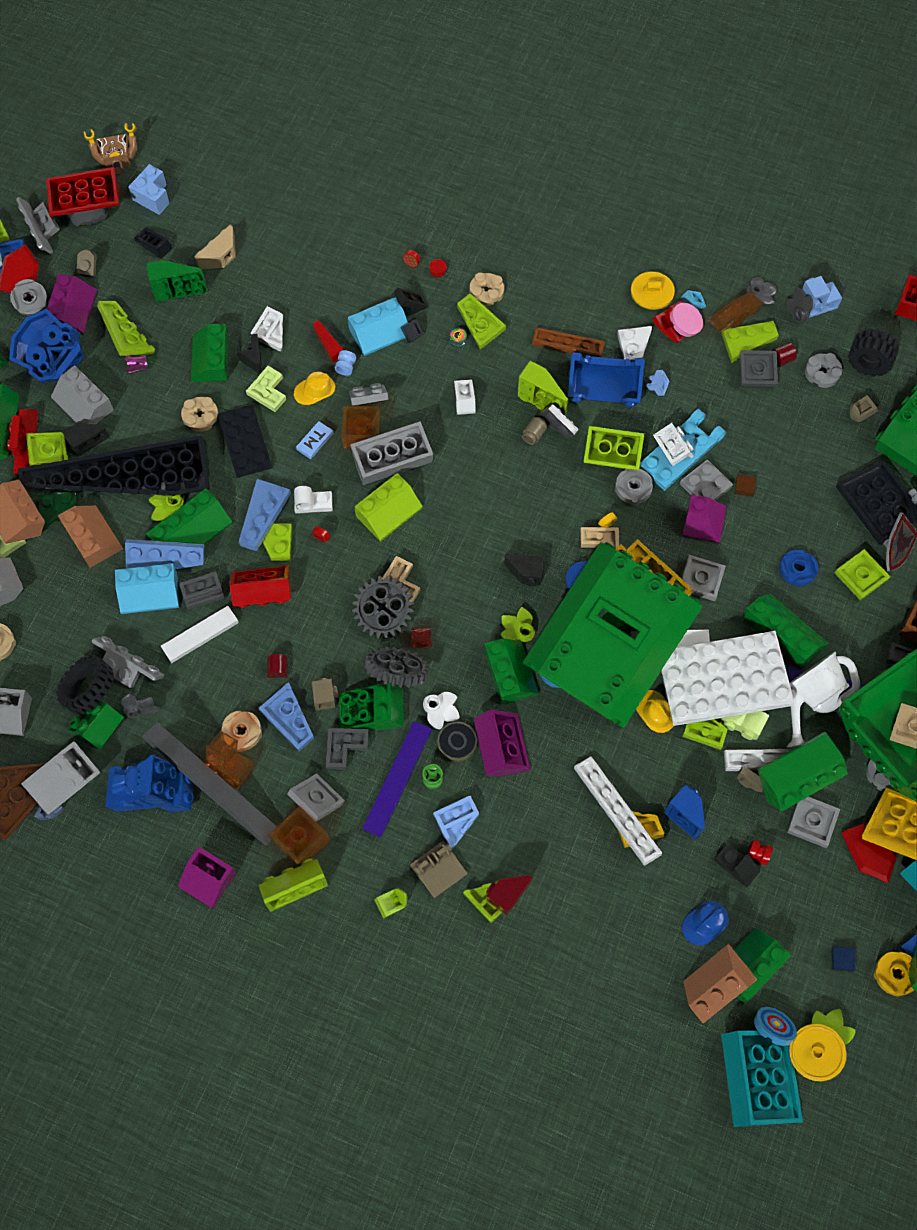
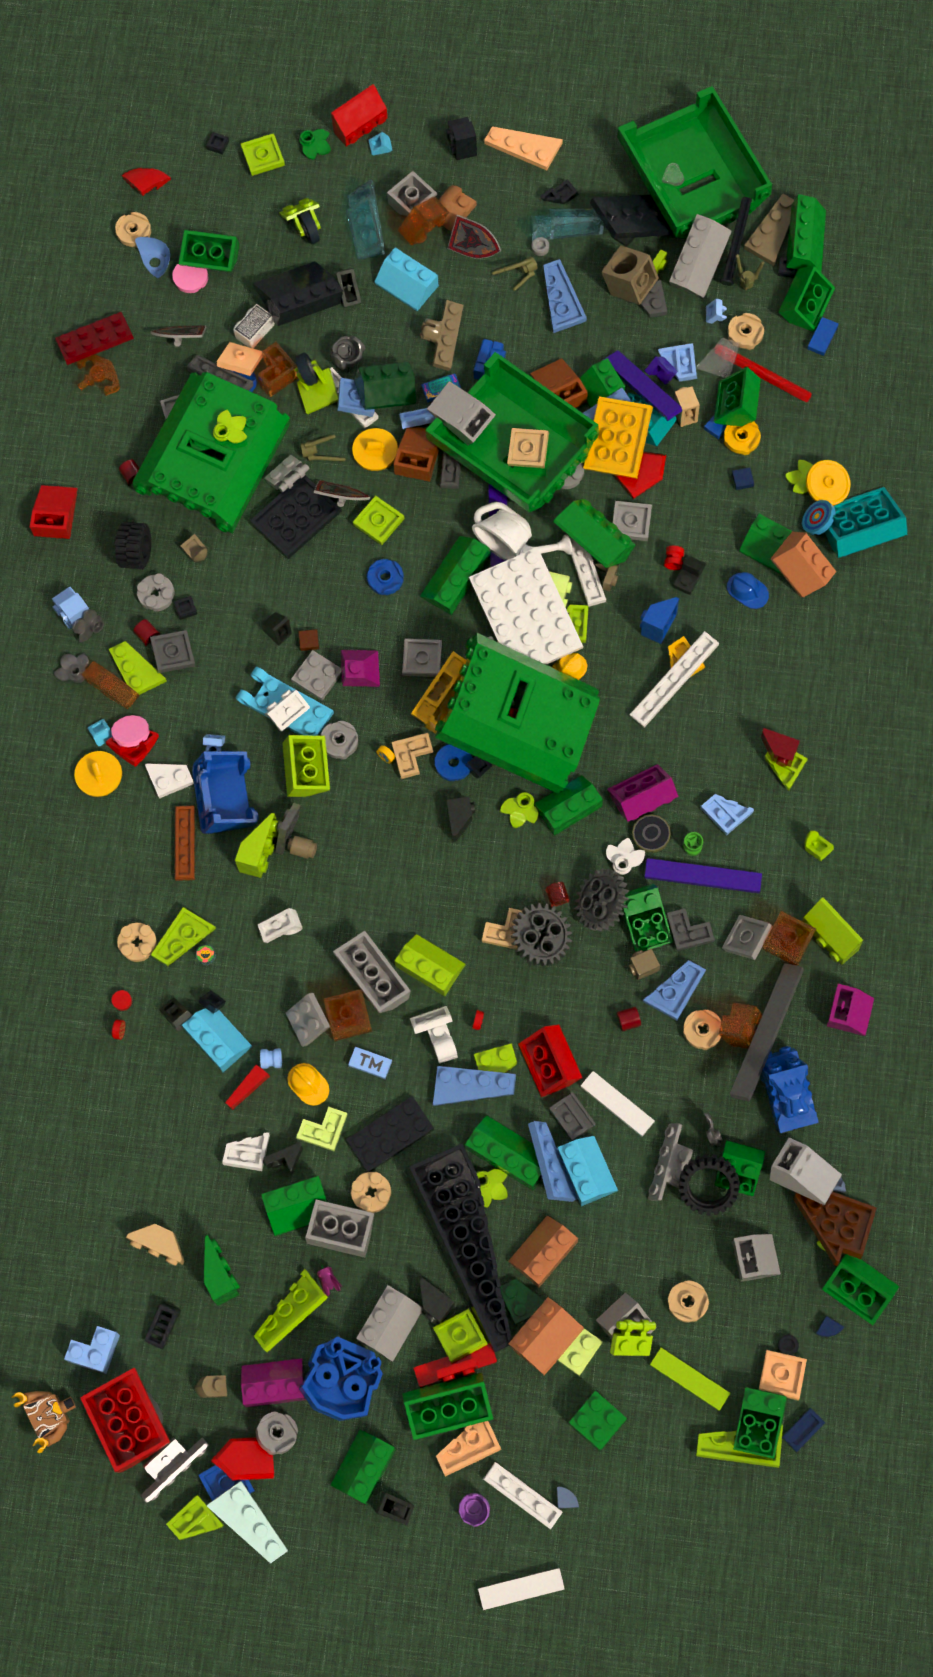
camera: 100 degrees left, 5 degrees up
(172, 376) = (340, 1228): none -> light grey slope
(335, 490) = (431, 1019): none -> white tile
(438, 869) = (774, 816): dark tan hinge -> none
(761, 456) = (277, 627): none -> pearl dark grey slope
(802, 391) = (185, 607): none -> black tile

